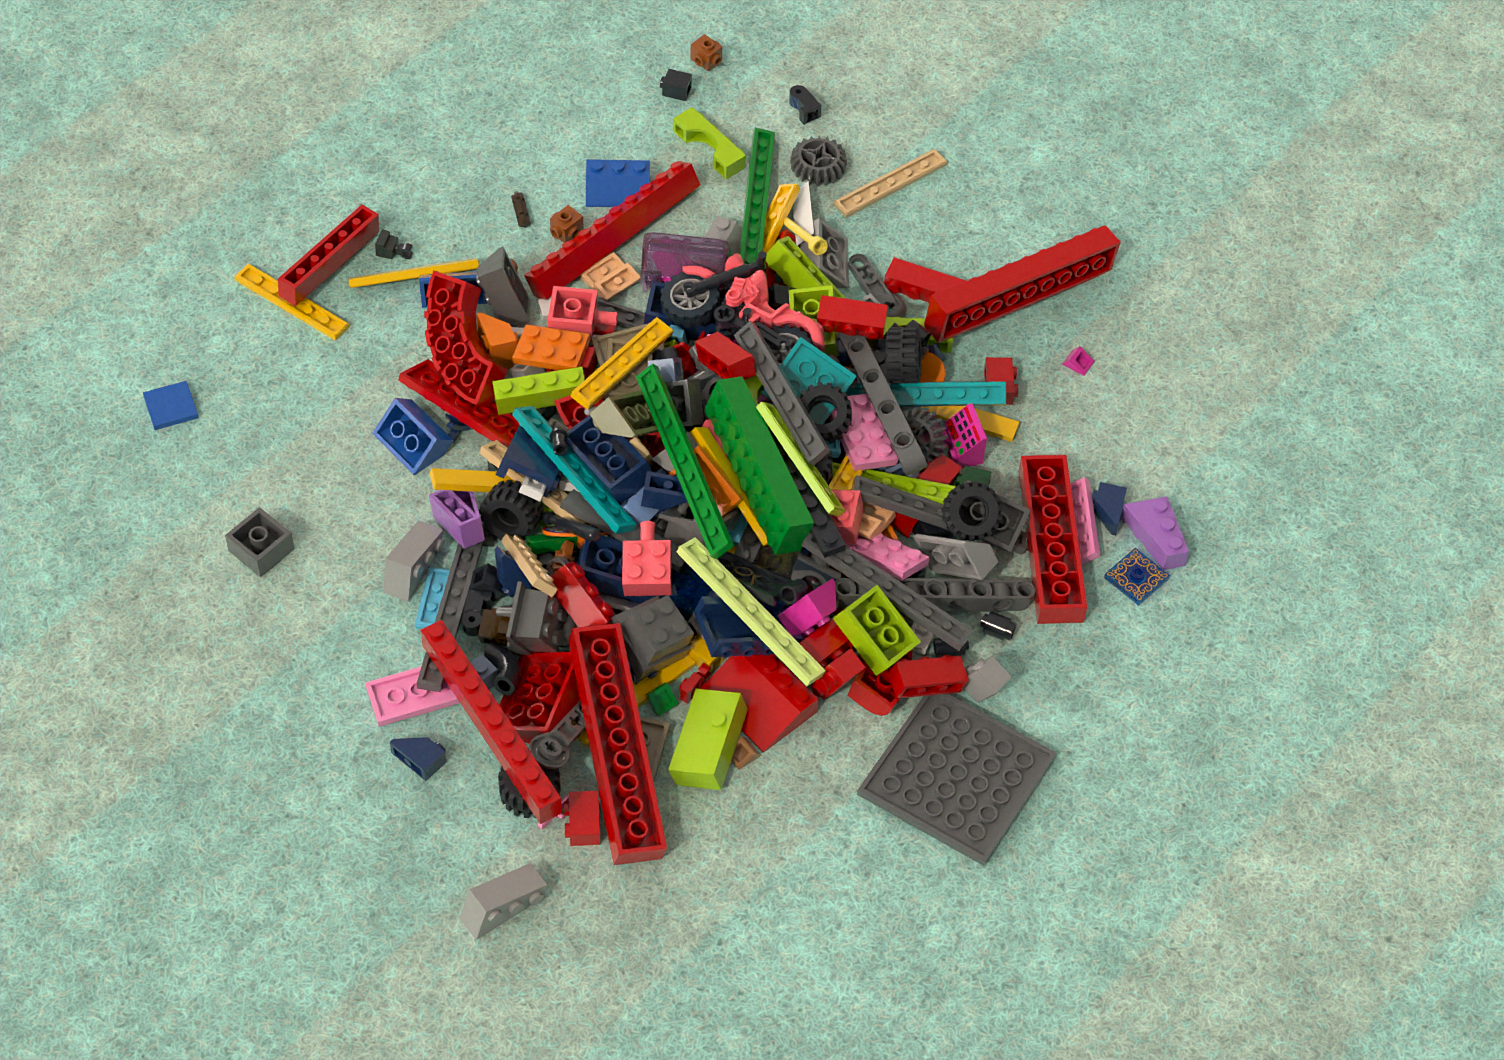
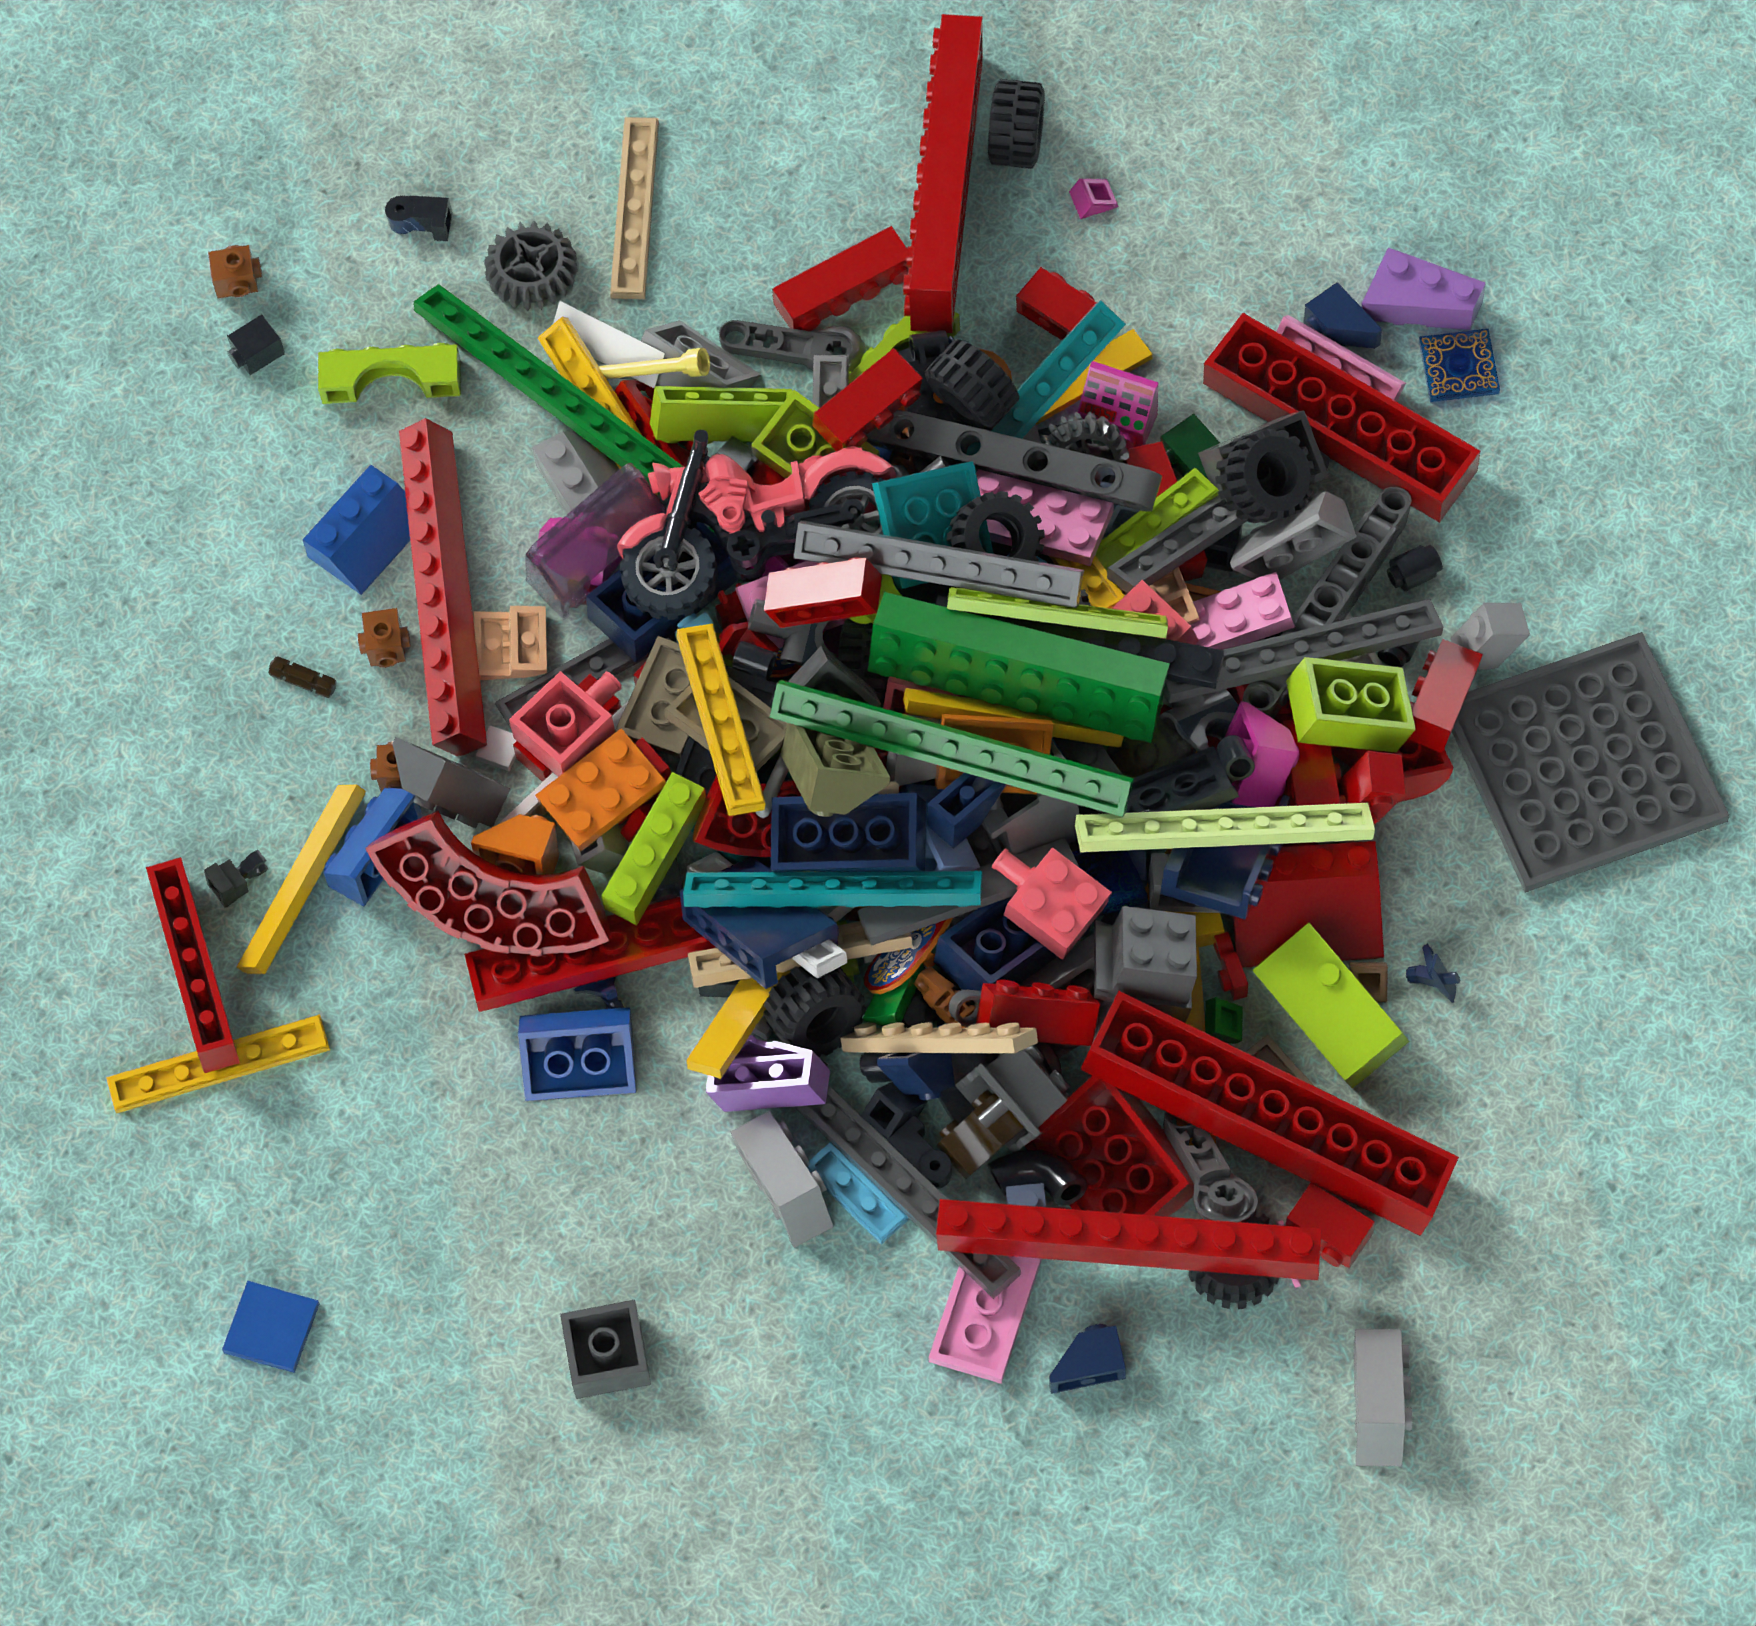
camera: 45 degrees left, 10 degrees up
(559, 437) = (778, 873): black pin -> none
(581, 530) = (925, 946): black piece -> none
(670, 368) = (769, 671): sand blue brick -> none
(770, 778) = (1434, 974): none -> dark blue piece
(1080, 297) = (1016, 123): none -> black tyre

